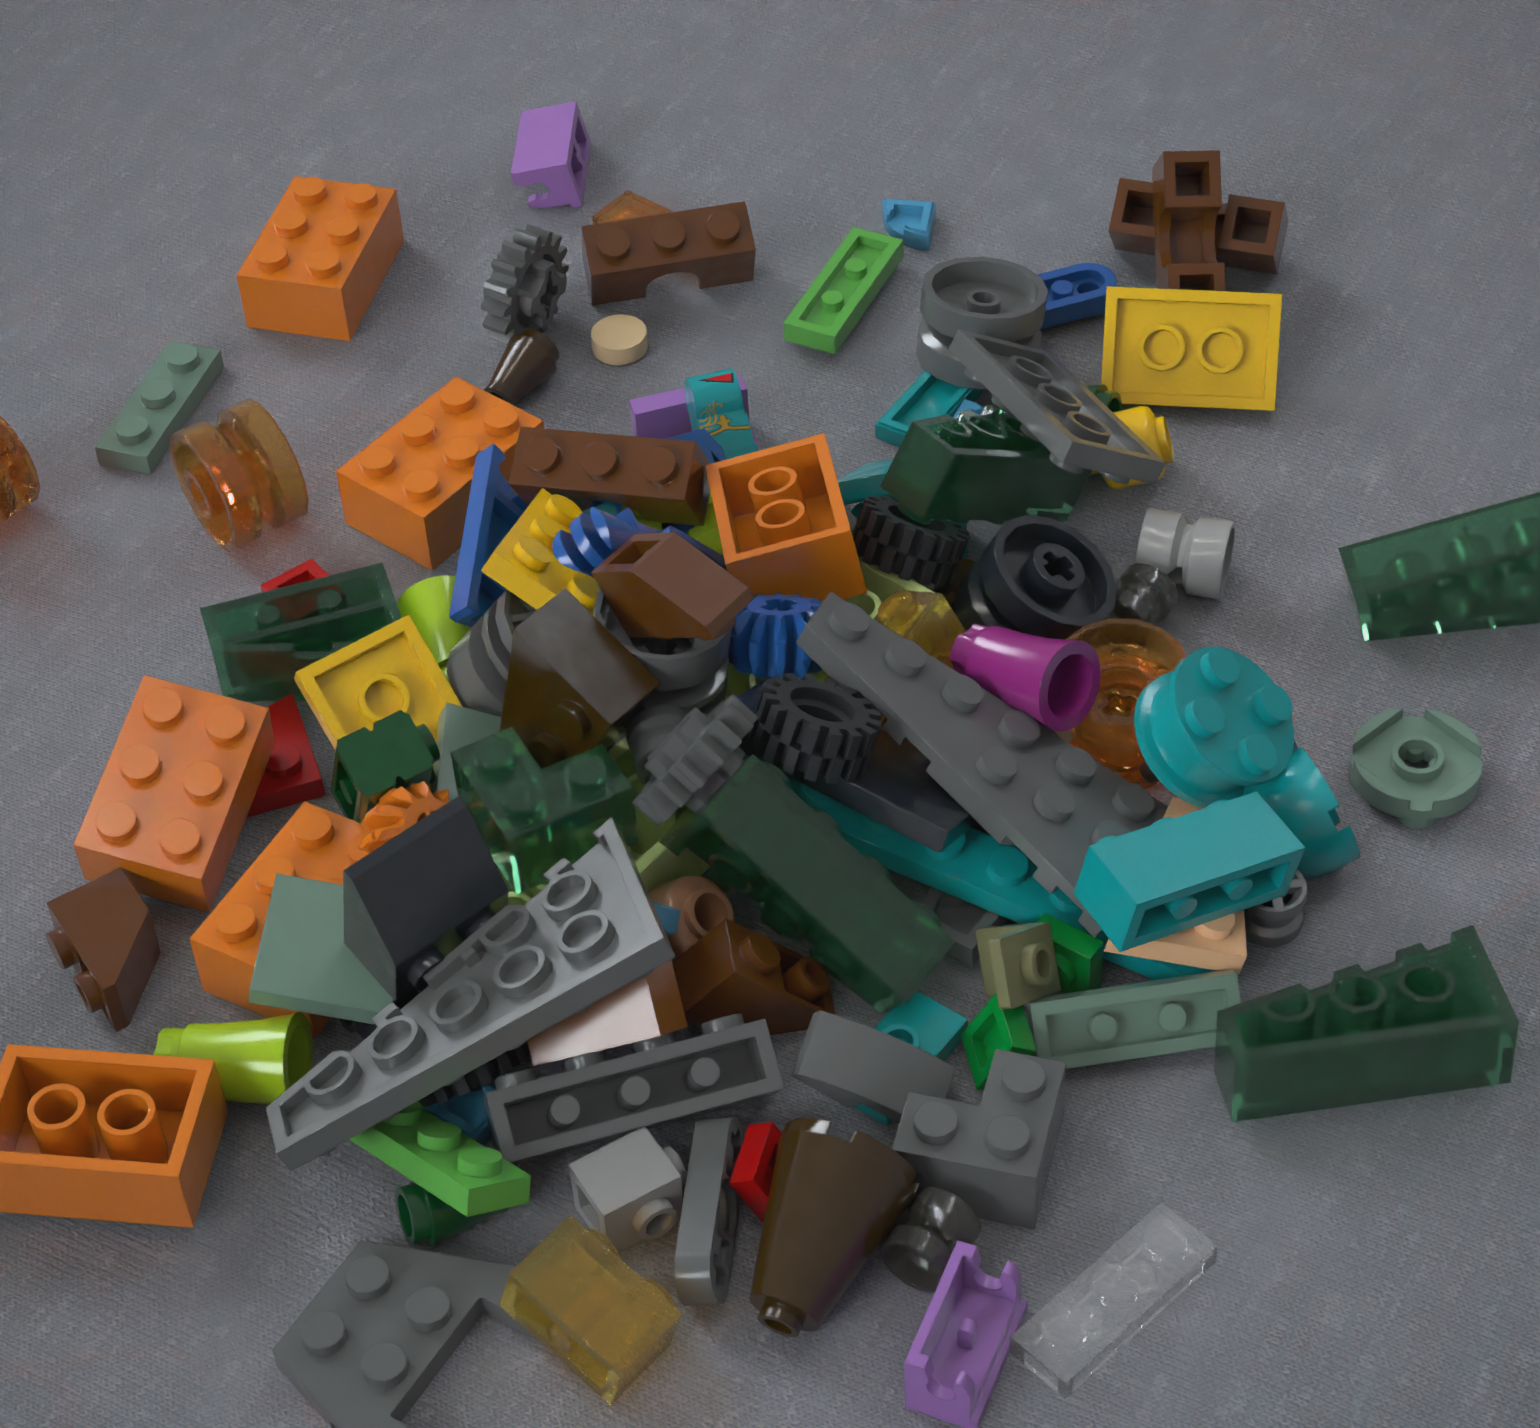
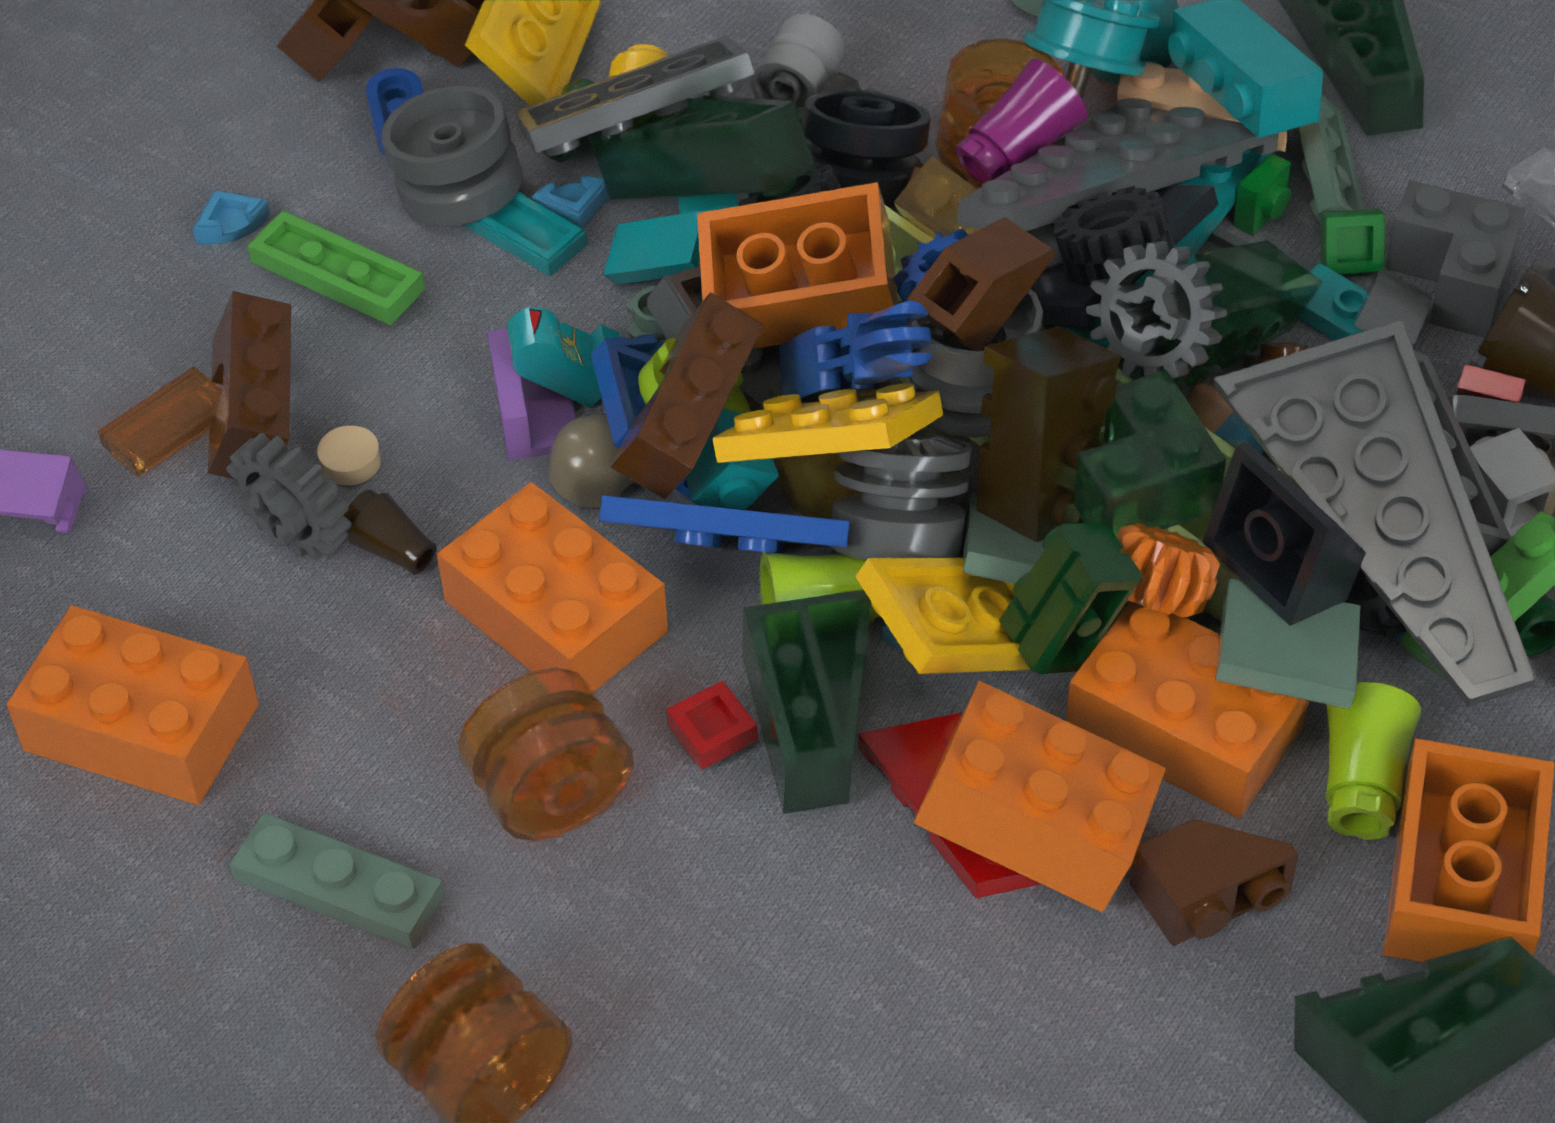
camera: 85 degrees left, 5 degrees up
(1018, 962) = (1288, 196): olive bracket -> none

